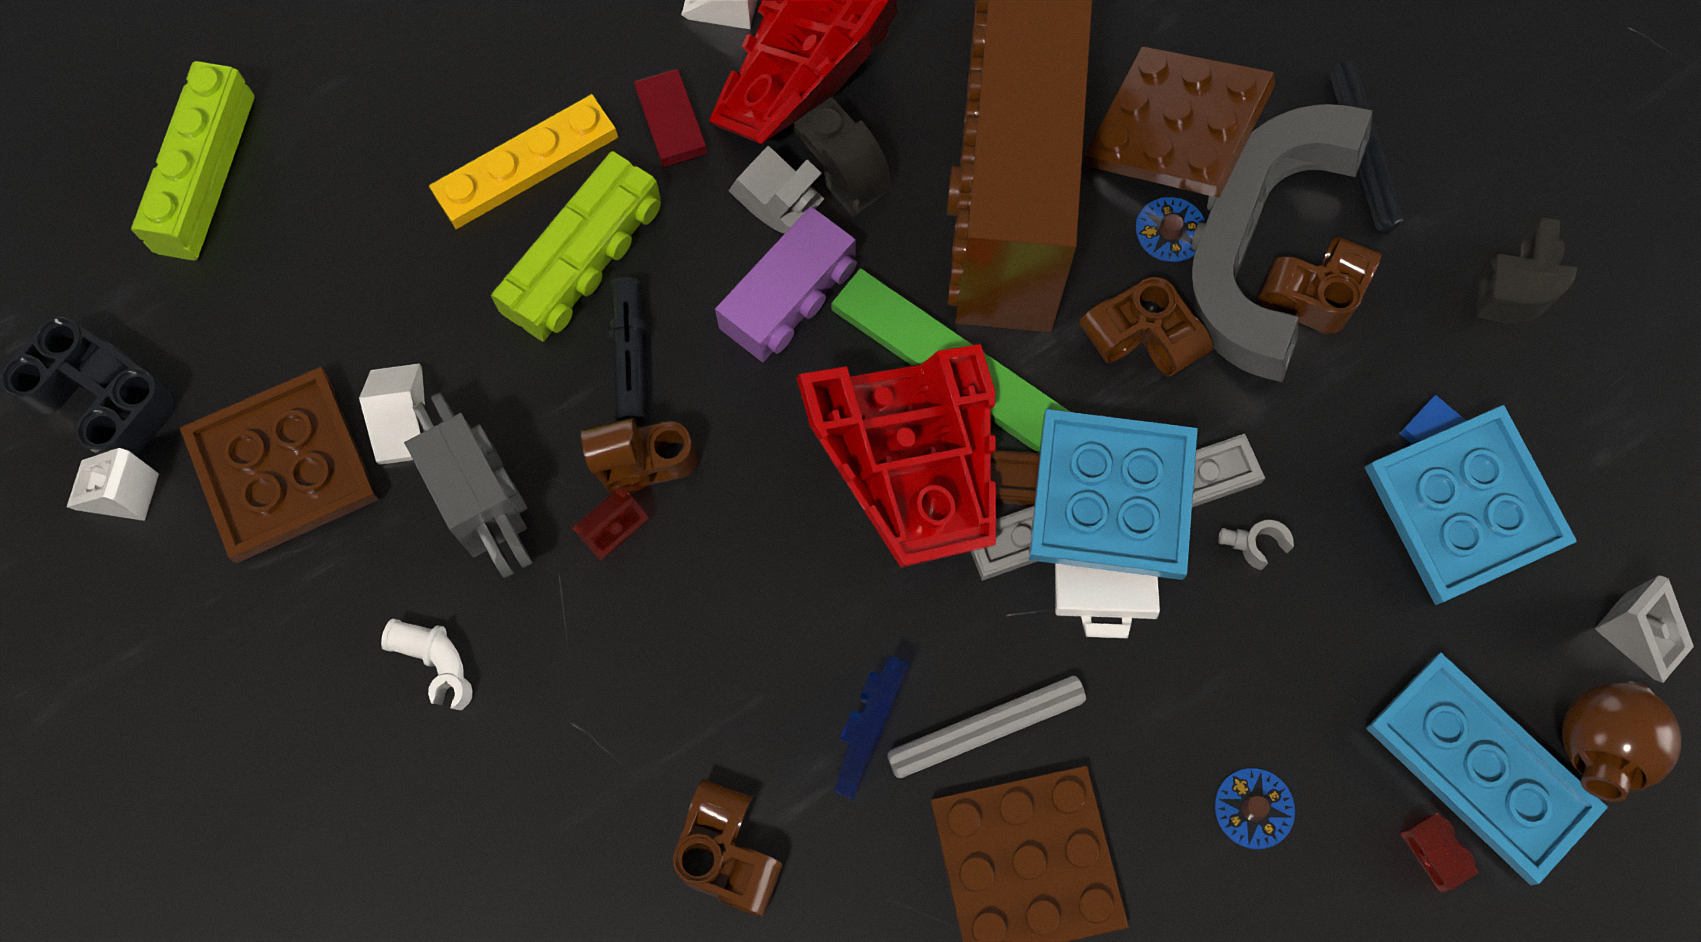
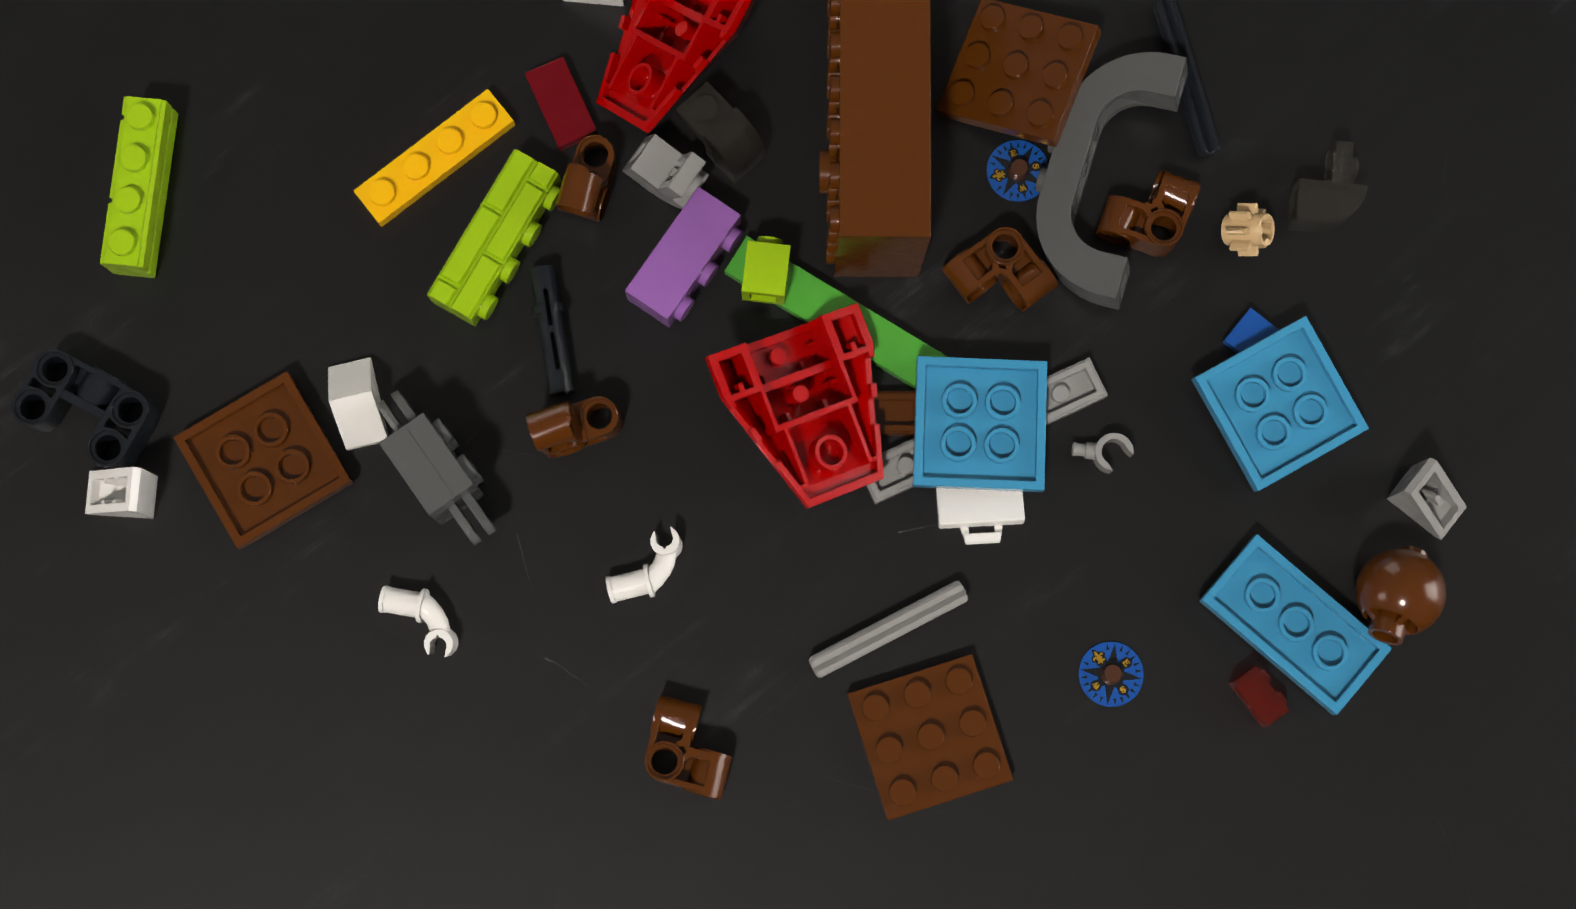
camera: 10 degrees left, 10 degrees up
(610, 523) = (556, 486): clear red piece -> none
(683, 200) = (587, 188): none -> reddish brown piece
(708, 638) = (650, 577): none -> white piece
(865, 729) = (787, 645): clear blue wing -> none
(878, 303) = (766, 270): none -> lime brick
(1434, 307) = (1247, 229): none -> tan gear

